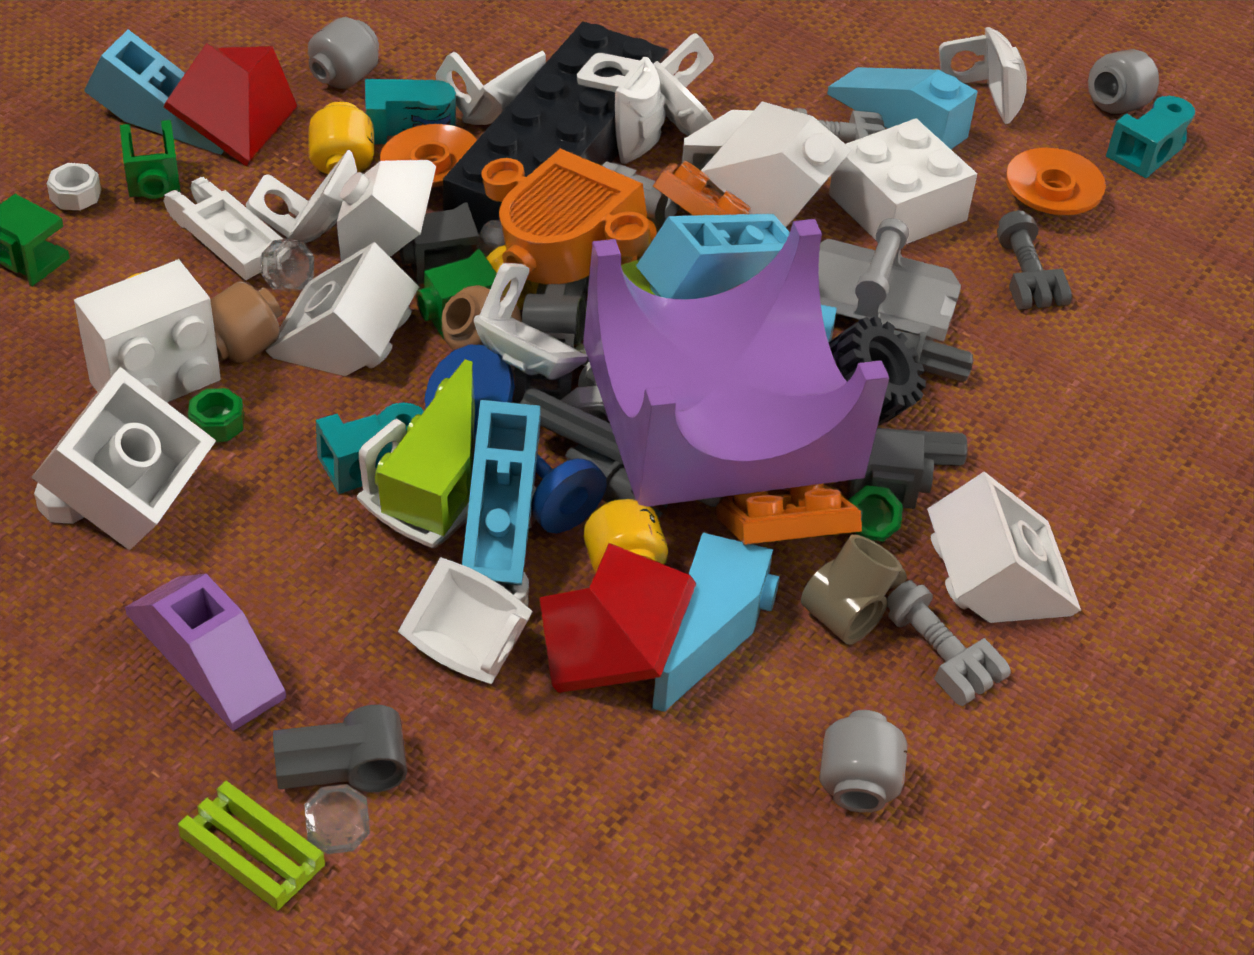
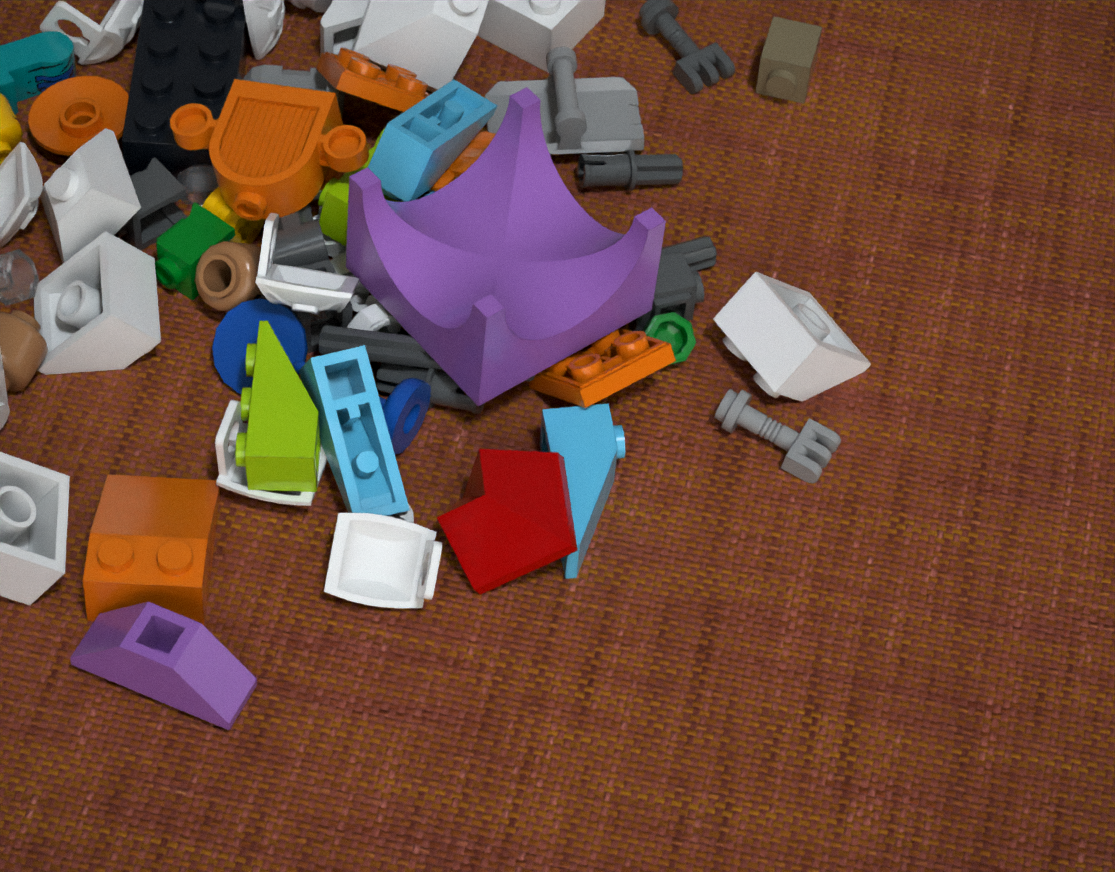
camera: 25 degrees left, 5 degrees up
(217, 413) = (37, 444): green tile -> none
(262, 536) = (152, 545): none -> orange slope
(267, 825) = (308, 809): lime tile -> none
(337, 819) = (365, 769): clear tile -> none
(340, 443) = (188, 439): teal leg -> none
(360, 750) = (349, 705): dark grey piece -> none
(628, 527) = (466, 429): yellow head -> none
(852, 588) = (686, 413): dark tan piece -> none
(863, 761) = (765, 560): light grey head -> none
(871, 342) = (608, 192): black tyre -> none
(1128, 304) = (788, 59): none -> dark tan brick

